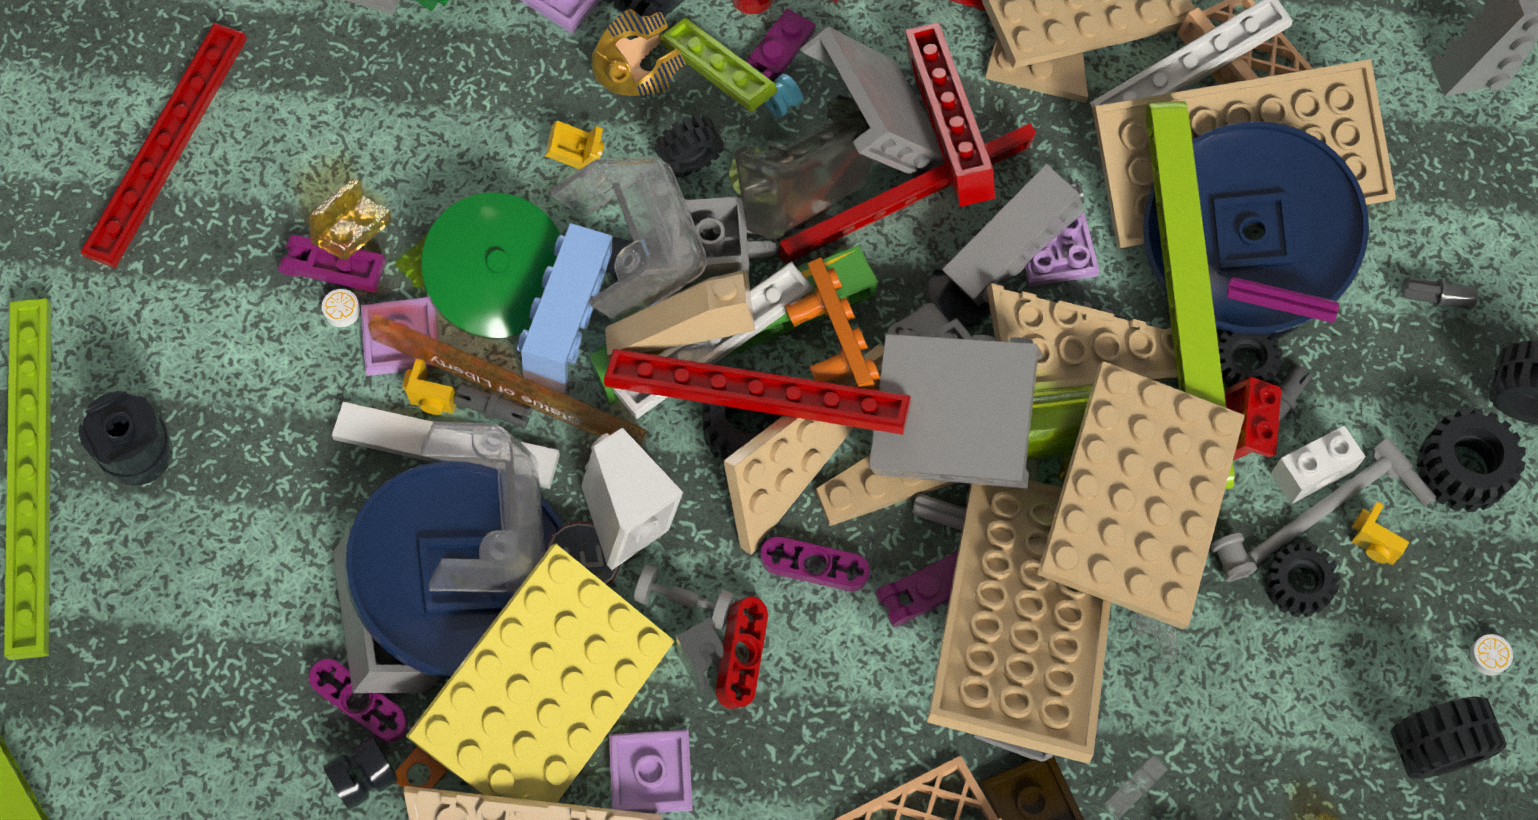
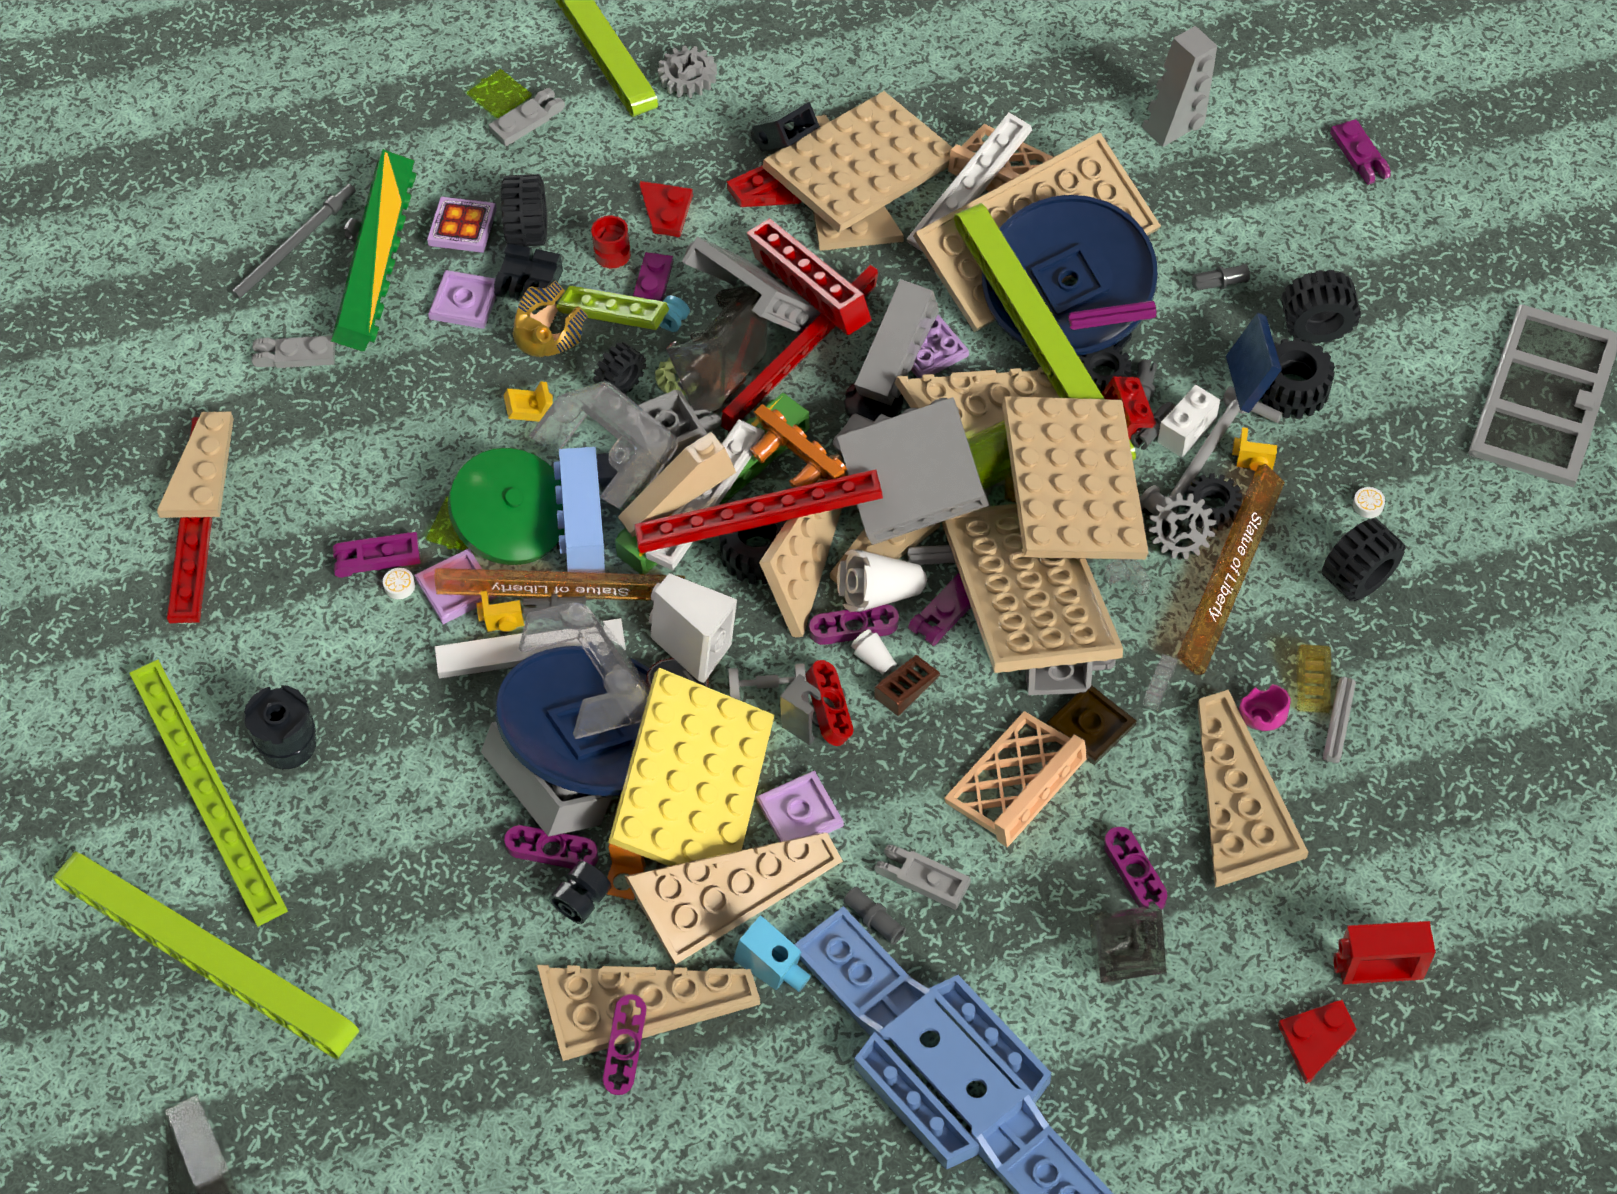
camera: 20 degrees left, 10 degrees down
(189, 94) = (201, 472): none -> tan wing
(347, 221) = (375, 518): clear yellow bracket -> none
(820, 610) = (873, 652): none -> white cone
(821, 687) = (896, 703): none -> copper slope
(861, 526) = (877, 580): none -> white cone
(1255, 613) = (1171, 517): none -> light grey gear
(1283, 677) = (1230, 570): none -> clear orange tile
(1285, 446) = (1147, 435): none -> dark grey axle
(1427, 425) = (1253, 363): none -> dark blue tile

